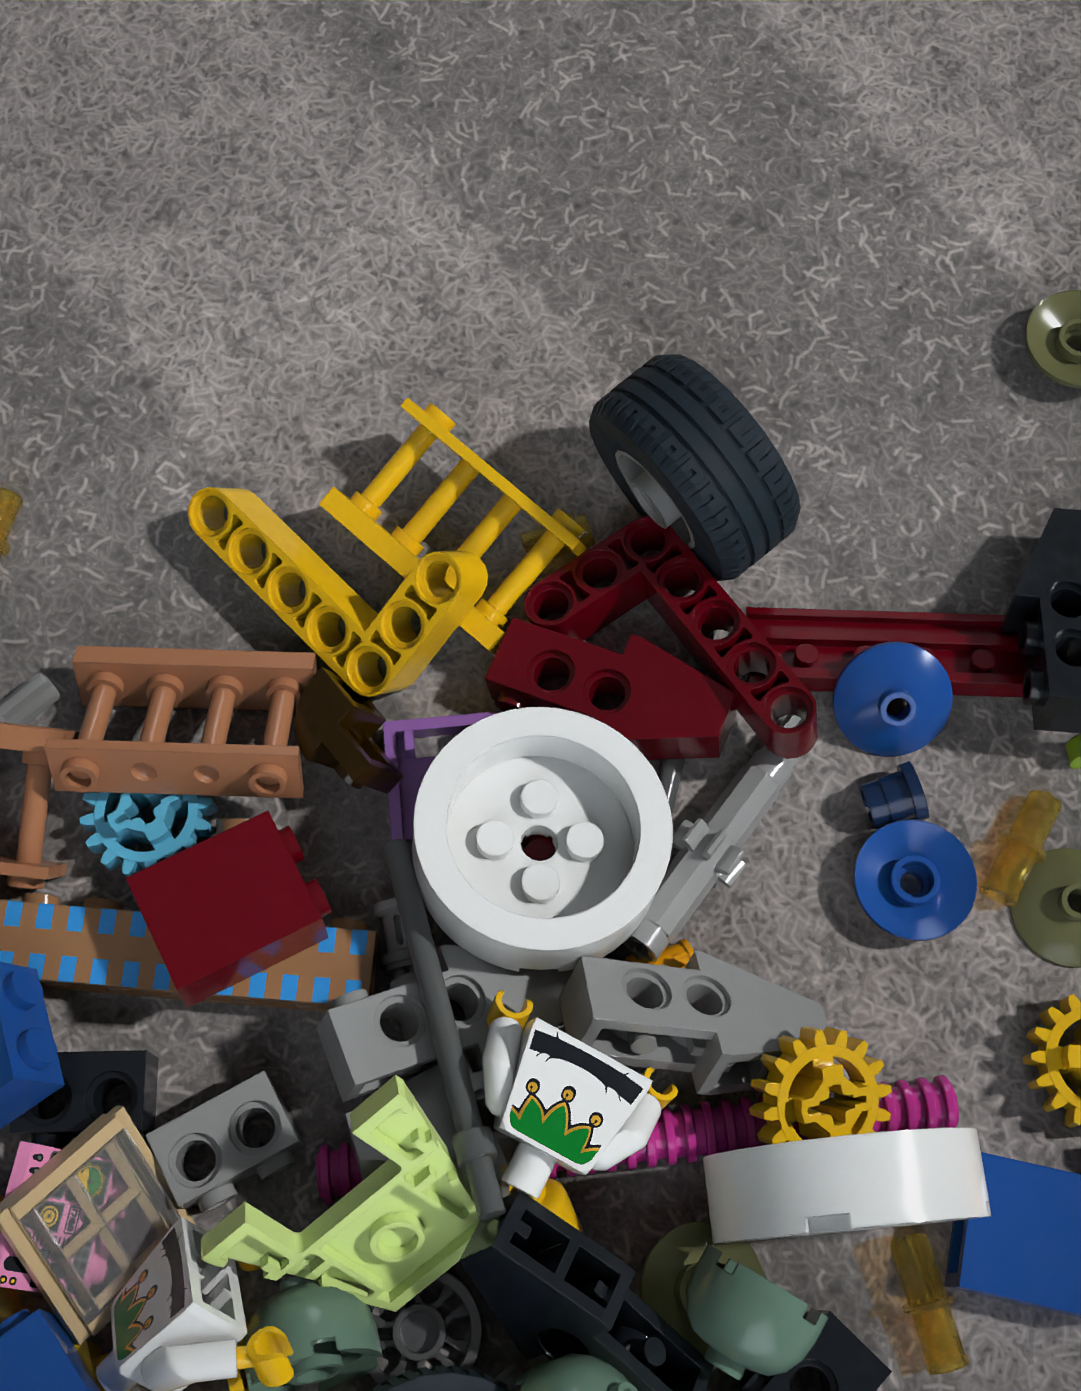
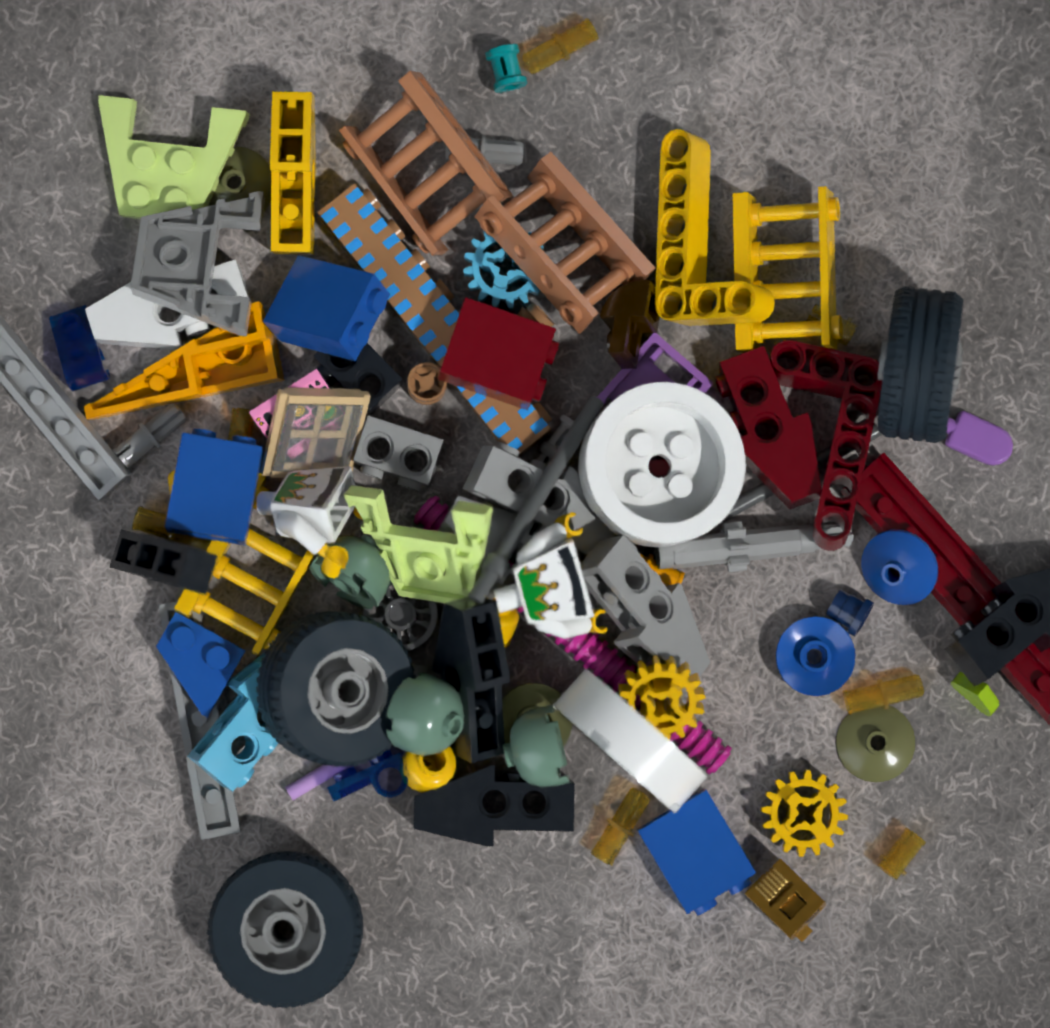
camera: 50 degrees right, 15 degrees up
(173, 1021) = (425, 378): none -> medium nougat wheel
(828, 505) = (978, 439): none -> medium lavender piece

